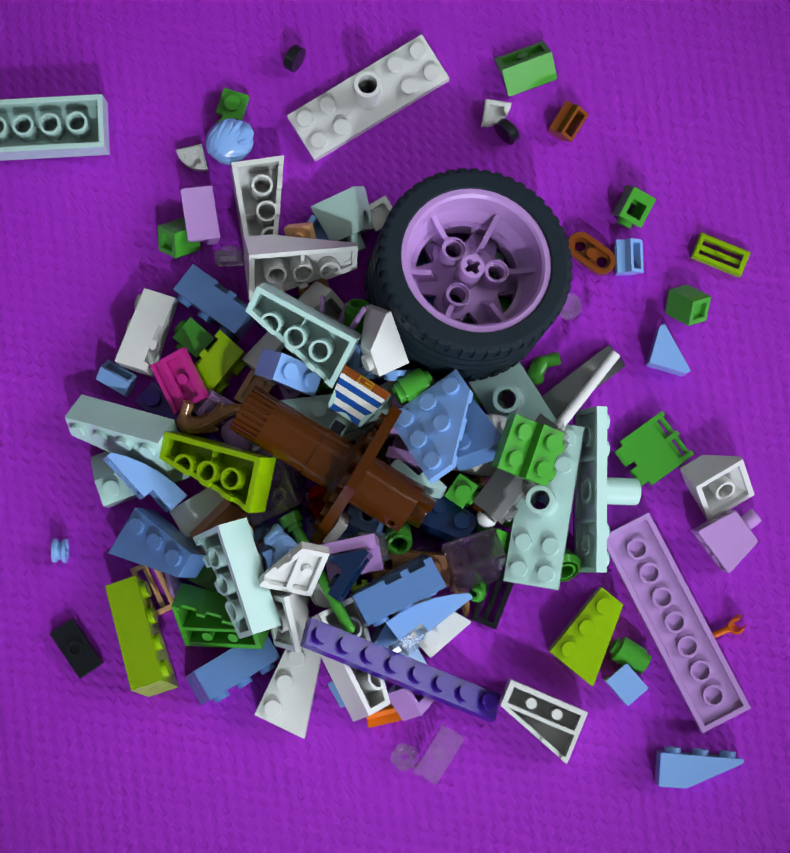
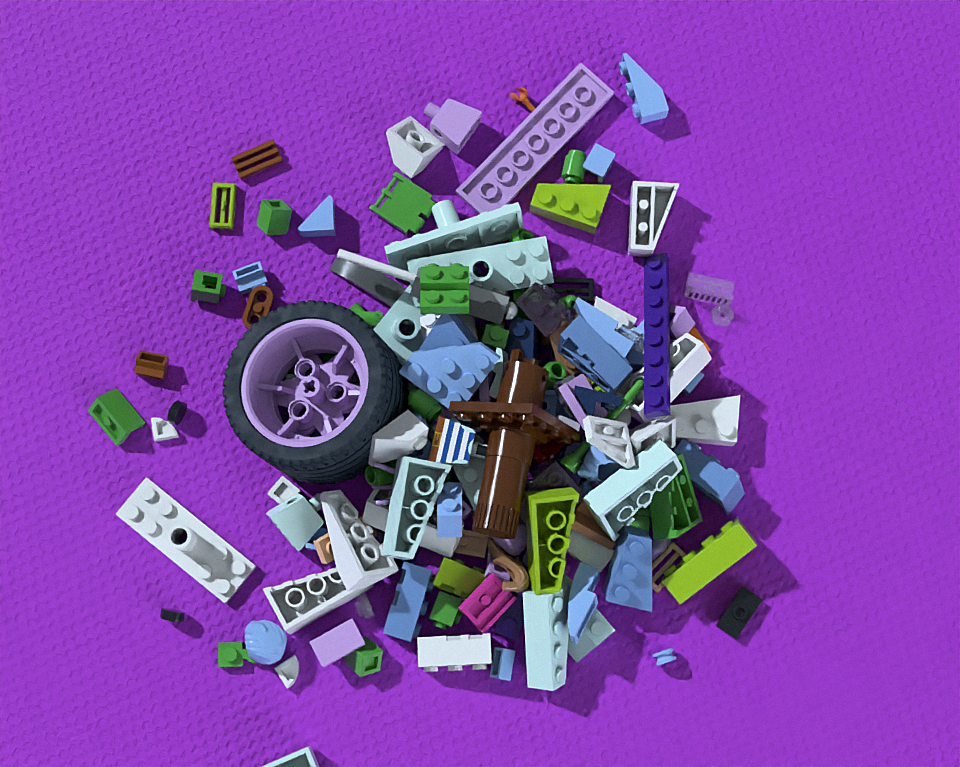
camera: 110 degrees left, 5 degrees down
(759, 286) = (254, 151): none -> dark orange tile

